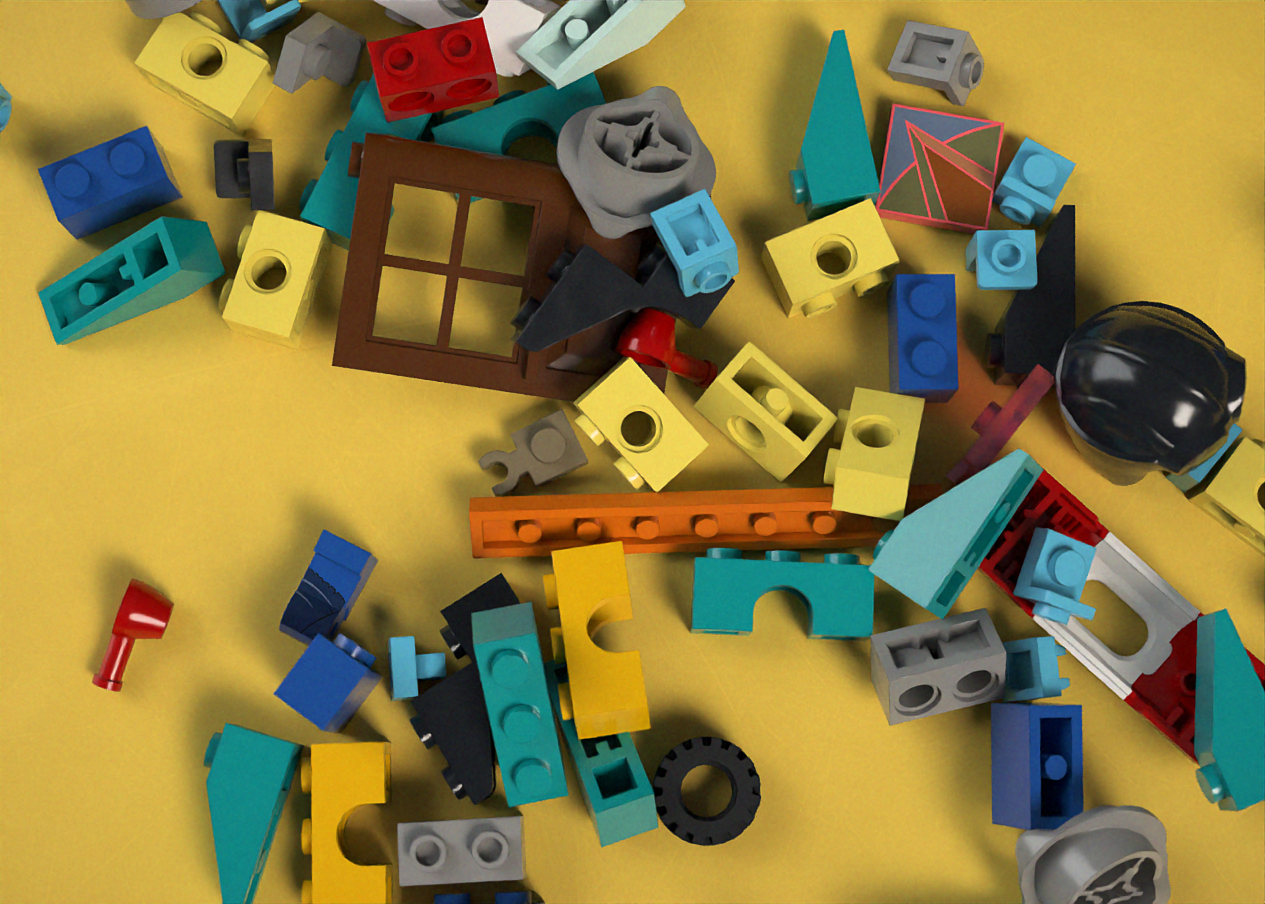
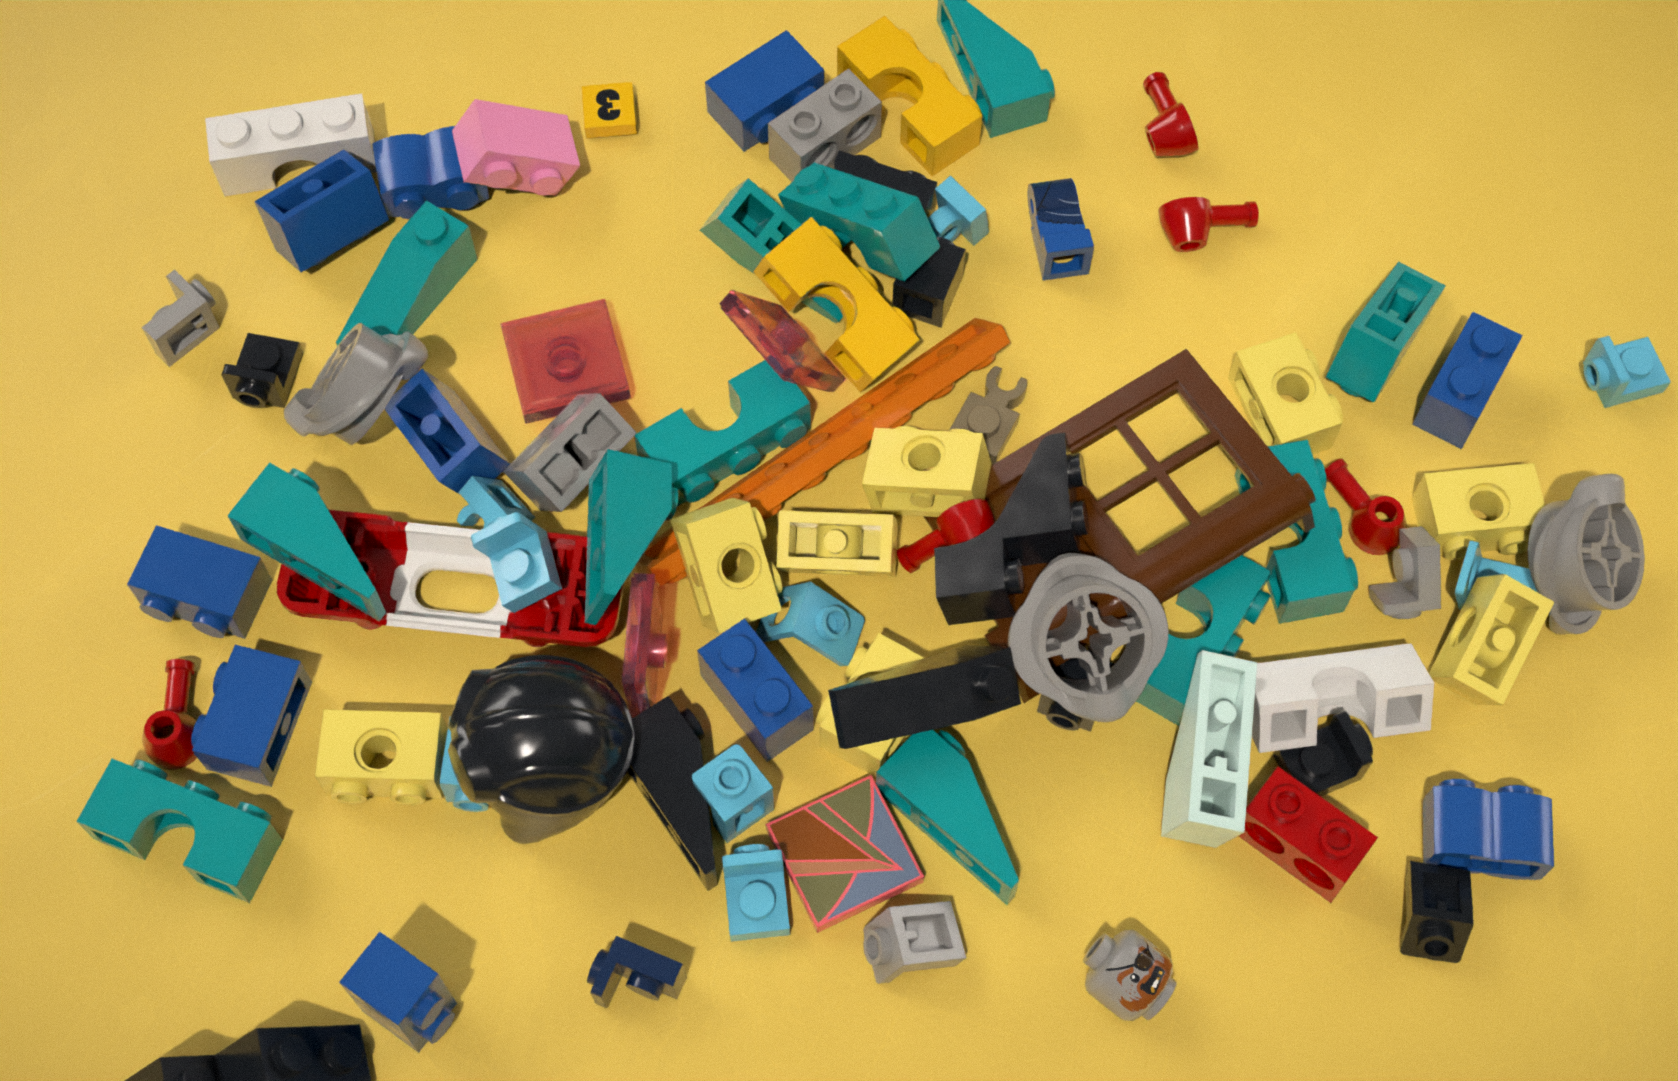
camera: 145 degrees right, 15 degrees down
(206, 509) = (1189, 220): none -> red bar
(245, 171) = (1375, 456): black bracket -> none
(293, 145) = (1364, 526): none -> red bar
(330, 682) = (1002, 155): blue brick -> none
(434, 69) = (1304, 595): red brick -> none
(677, 635) = (781, 342): none -> plate
(697, 243) = (987, 581): medium azure bracket -> none
(744, 797) = (680, 250): black tyre -> none
(798, 207) = (925, 695): none -> black slope
(826, 364) = (816, 621): none -> medium azure bracket
(872, 779) = (564, 356): none -> clear pink plate
(1163, 183) = (646, 972): none -> dark blue bracket

